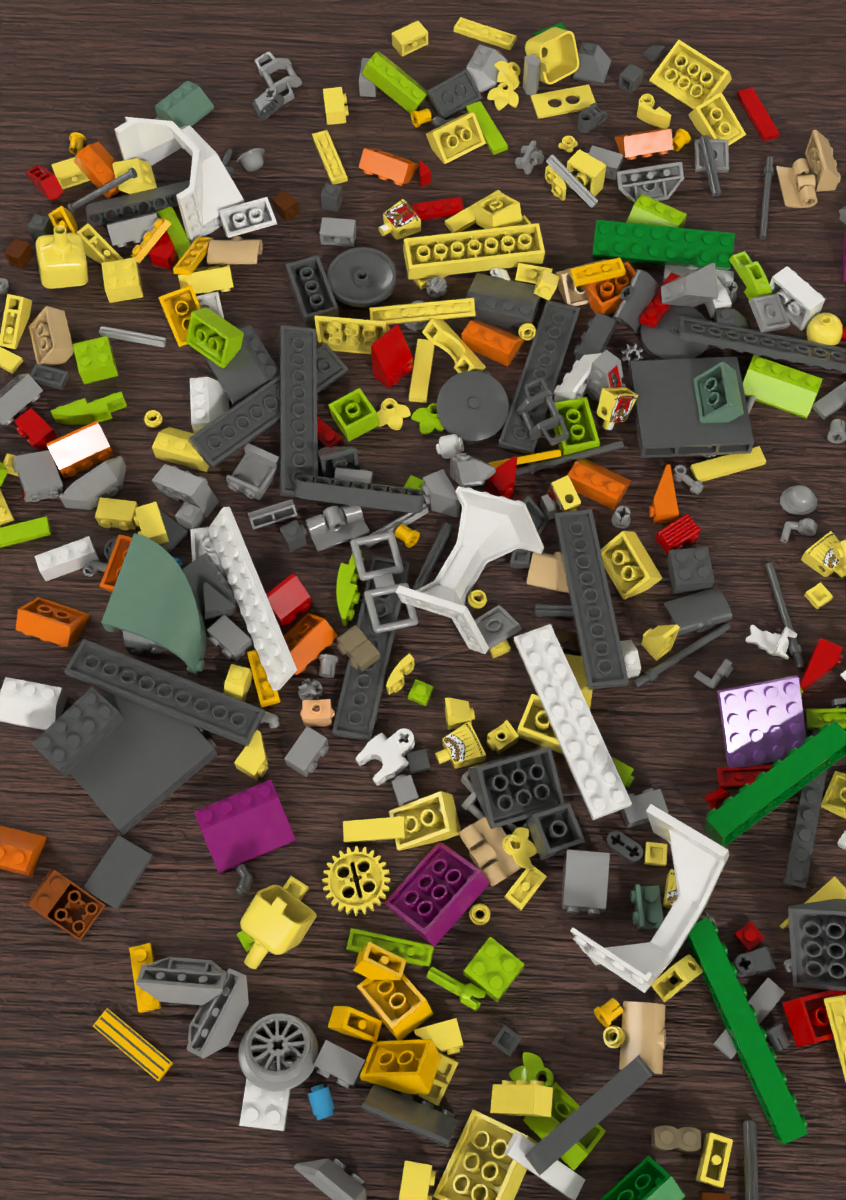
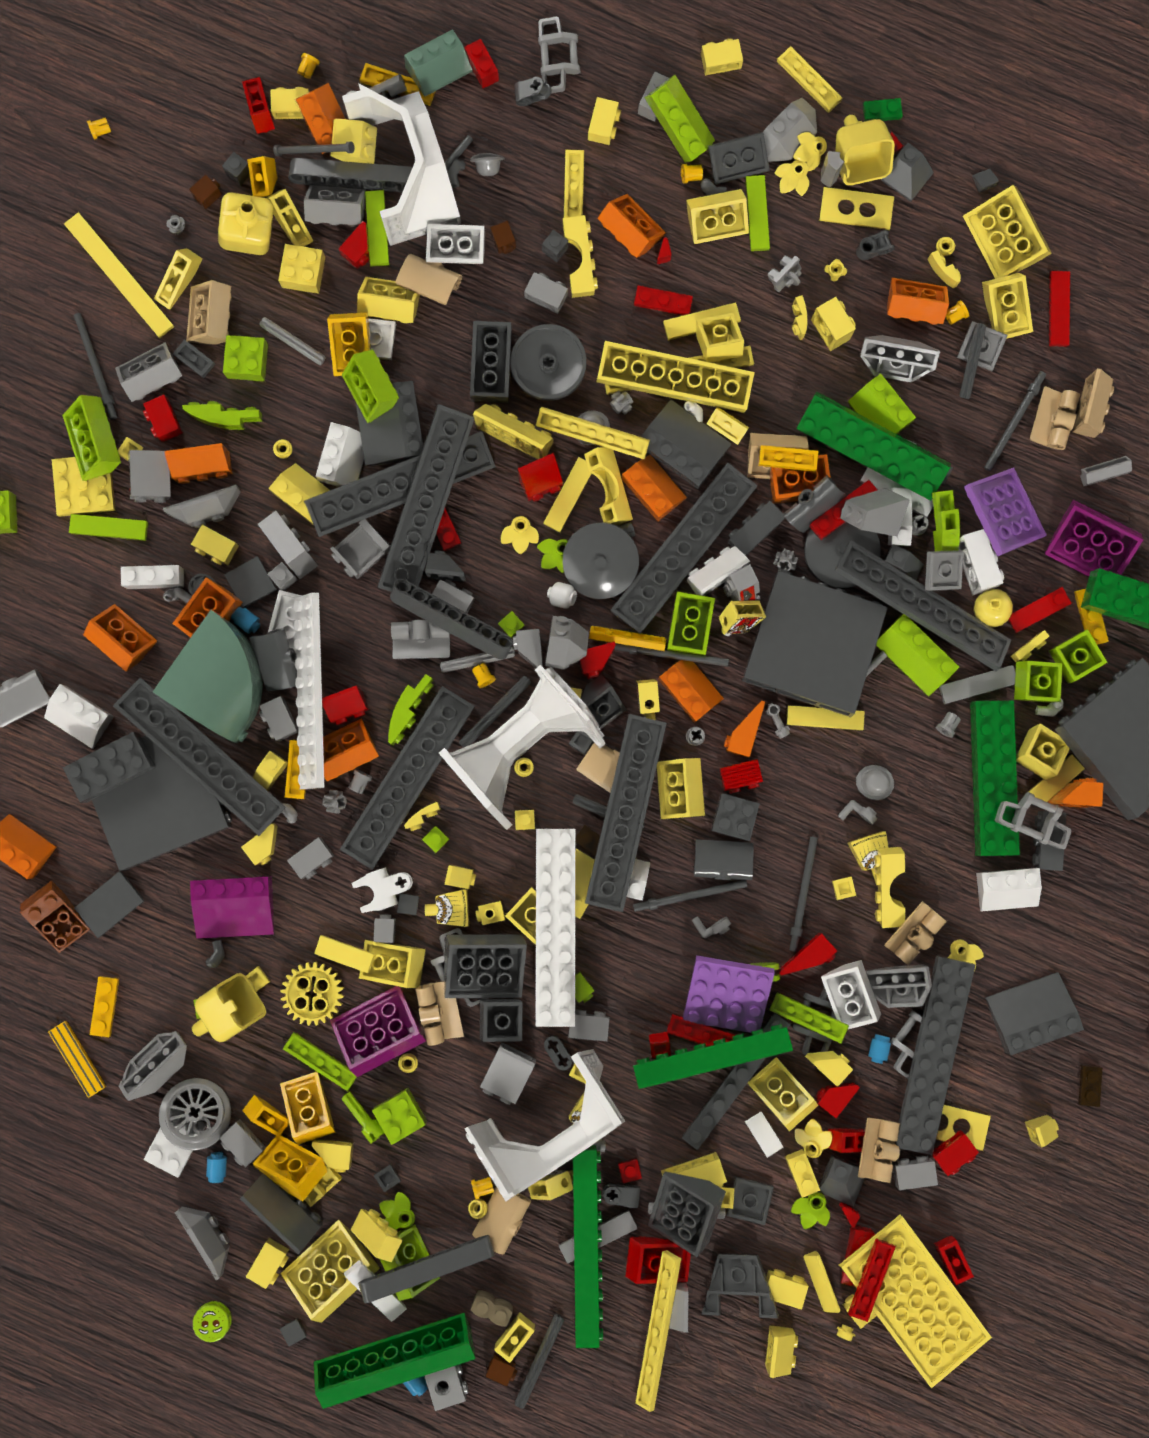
camera: 15 degrees right, 20 degrees up
(150, 239) = (345, 231): yellow plate -> none
(151, 523) = (241, 573): light yellow brick -> none
(182, 980) = (134, 1023): light grey wedge -> none
(193, 256) = (383, 270): yellow tile -> none
(215, 604) = (274, 684): dark grey slope -> none
(222, 99) = (482, 63): none -> red brick
(272, 514) = (363, 603): light grey piece -> none
(293, 535) = (374, 635): dark grey brick -> none
(317, 713) = (341, 825): light nougat head -> none
(354, 414) = (479, 525): lime brick -> none
(357, 648) = (391, 779): dark tan brick -> none
(364, 213) = (576, 232): none -> light yellow arch
(379, 963) = (304, 1075): yellow slope -> none
(382, 580) = (440, 716): light grey bar -> none
(400, 221) = (615, 304): torso -> none
(497, 626) = (527, 803): light grey tile -> none
(522, 847) = (467, 1021): light yellow plate -> none
(525, 887) = (456, 1055): light yellow plate -> none
(529, 334) = (691, 493): light yellow plate -> none
(541, 428) = (656, 616): dark grey bar -> none
(546, 285) = (733, 447): light yellow brick -> none
(548, 506) = (630, 698): light grey plate -> none
(572, 181) = (815, 326): light grey axle -> none
(611, 159) = (863, 311): light grey brick -> none
(630, 78) = (942, 208): dark grey brick -> none
(648, 907) = (554, 1113): sand green bracket -> none
(660, 640) = (672, 877): light yellow slope -> none
(718, 394) = (843, 649): sand green slope -> none
(774, 644) = (779, 918): white hair -> none
(776, 1032) = (612, 1261): dark grey bush -> none
(795, 253) = (1005, 511): none -> medium lavender plate

